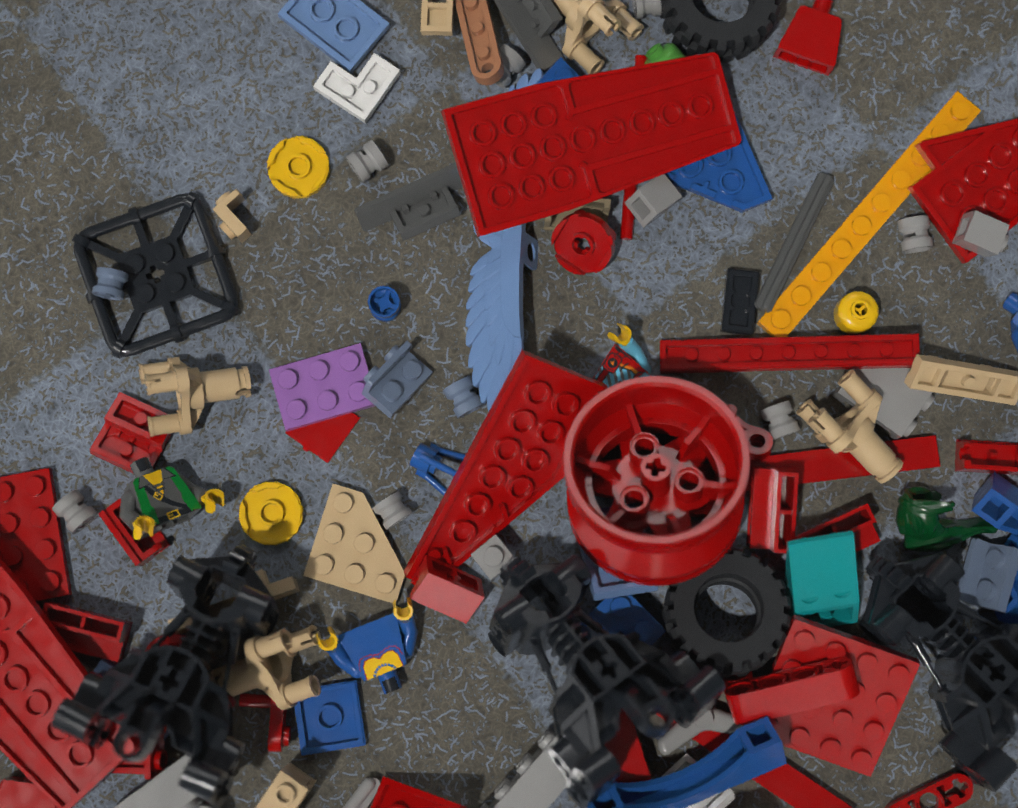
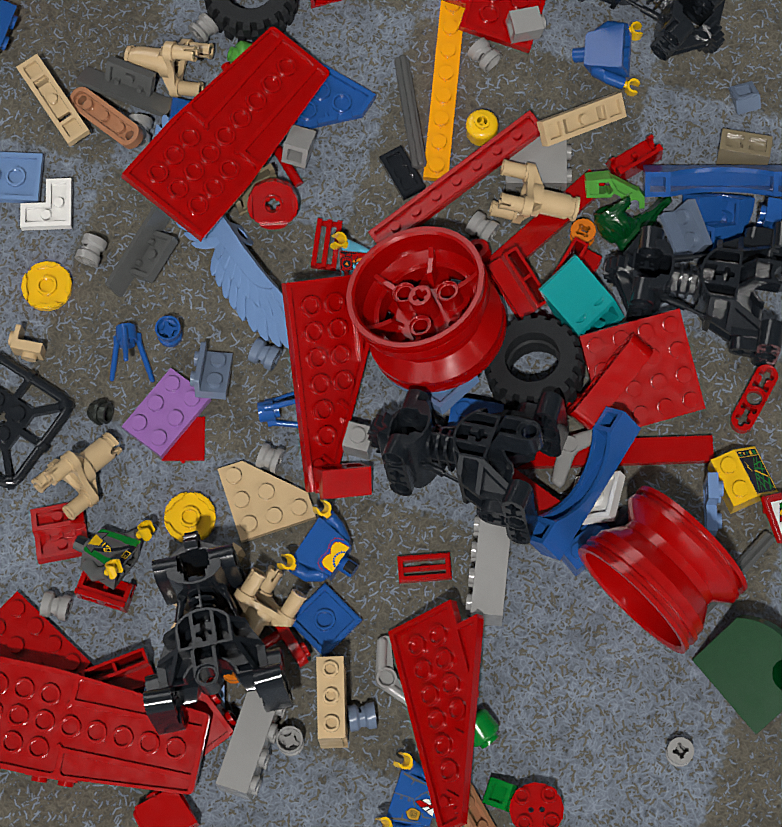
camera: 25 degrees left, 10 degrees down
(257, 340) = (100, 412): none -> pearl dark grey plate
(335, 279) = (126, 338): none -> blue plant
(473, 724) = (424, 578): none -> red tile
(627, 304) = (329, 224): none -> red tile
(872, 496) = (586, 225): none -> orange wheel
(940, 468) = (617, 186): none -> bright green piece

